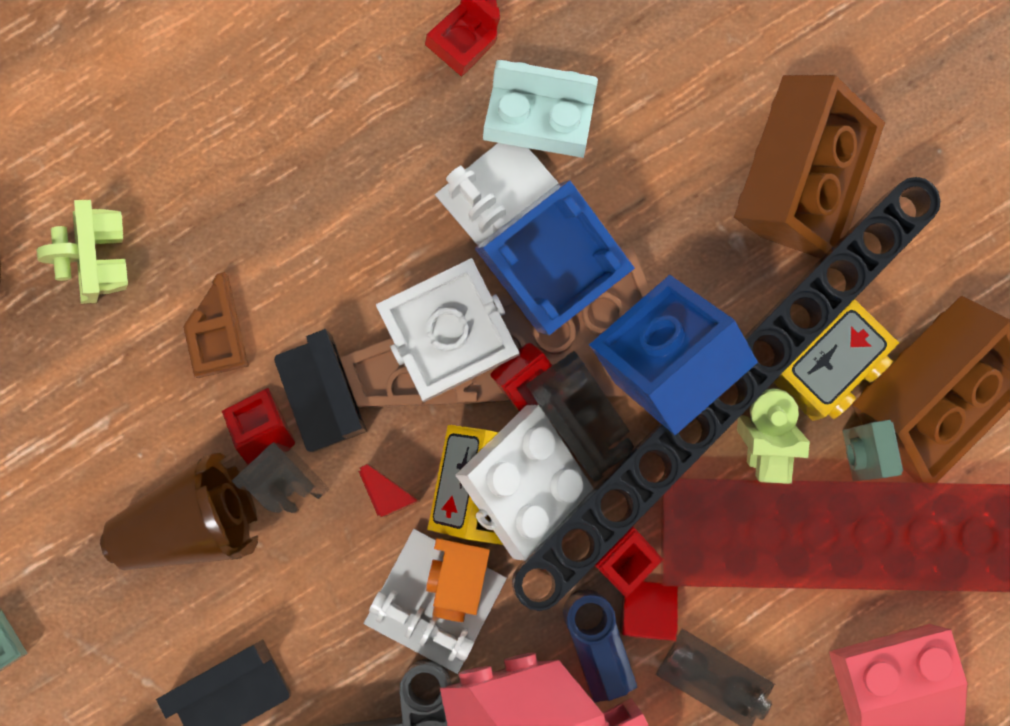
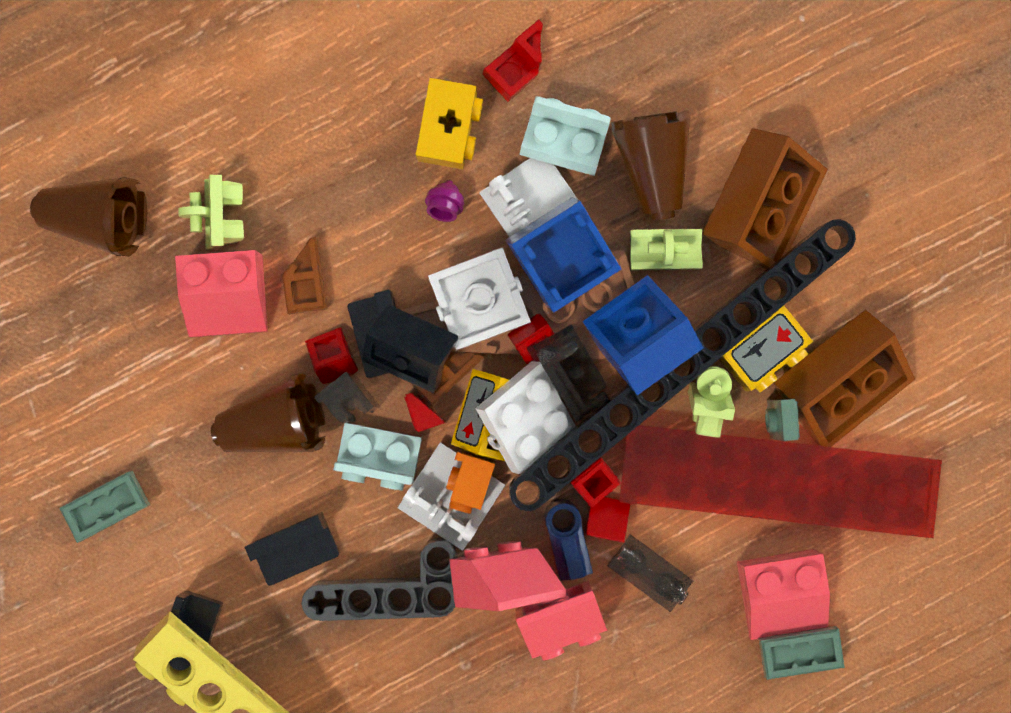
camera: 10 degrees right, 5 degrees up
(103, 356) = (222, 293): none -> coral slope
(331, 554) = (378, 455): none -> light aqua bracket
(357, 403) = (408, 347): none -> black panel
(381, 80) = (443, 101): none -> yellow brick
(390, 210) = (444, 202): none -> magenta plate
(407, 435) = (455, 368): none -> dark orange tile
(661, 126) = (655, 159): none -> reddish brown cone
(688, 242) = (666, 249): none -> yellowish green hips

